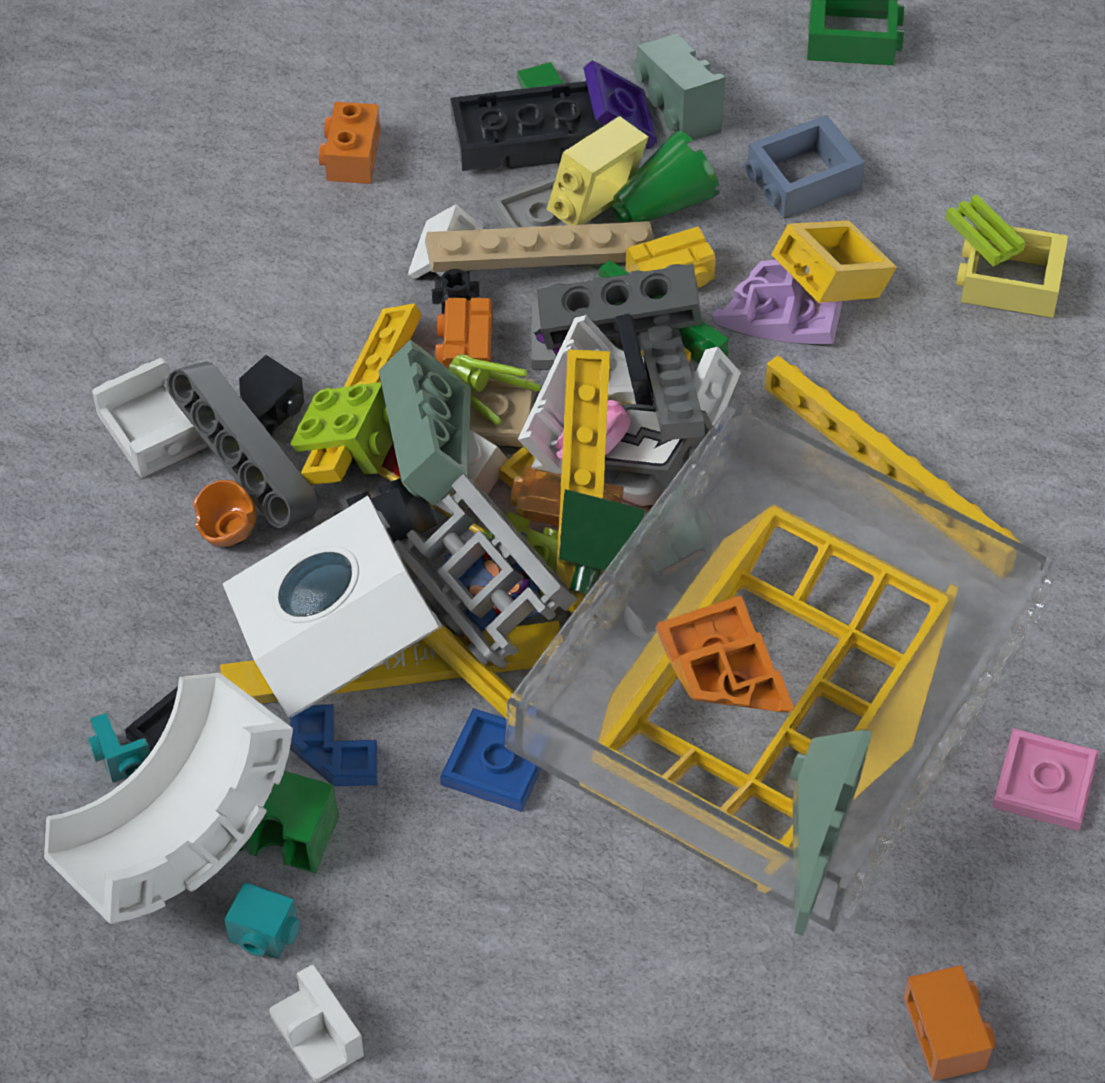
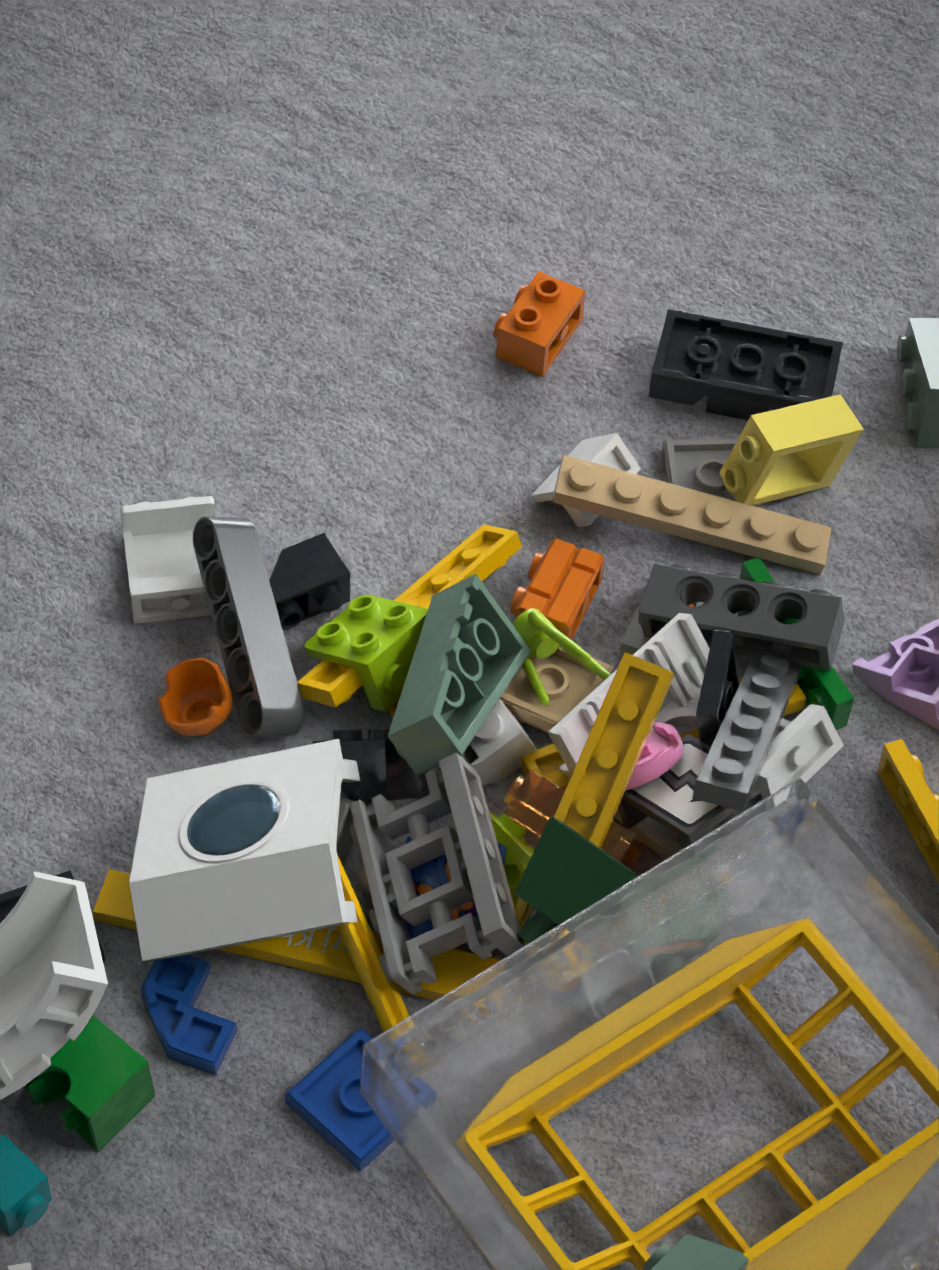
camera: 20 degrees right, 0 degrees up
(454, 284) = (573, 526): black gear -> none
(538, 76) = (786, 317): green tile -> none
(616, 97) = (861, 377): dark purple tile -> none
(666, 182) = (868, 490): green cone -> none
(678, 248) = (848, 575): yellow brick -> none
(723, 658) = (635, 1091): orange slope -> none

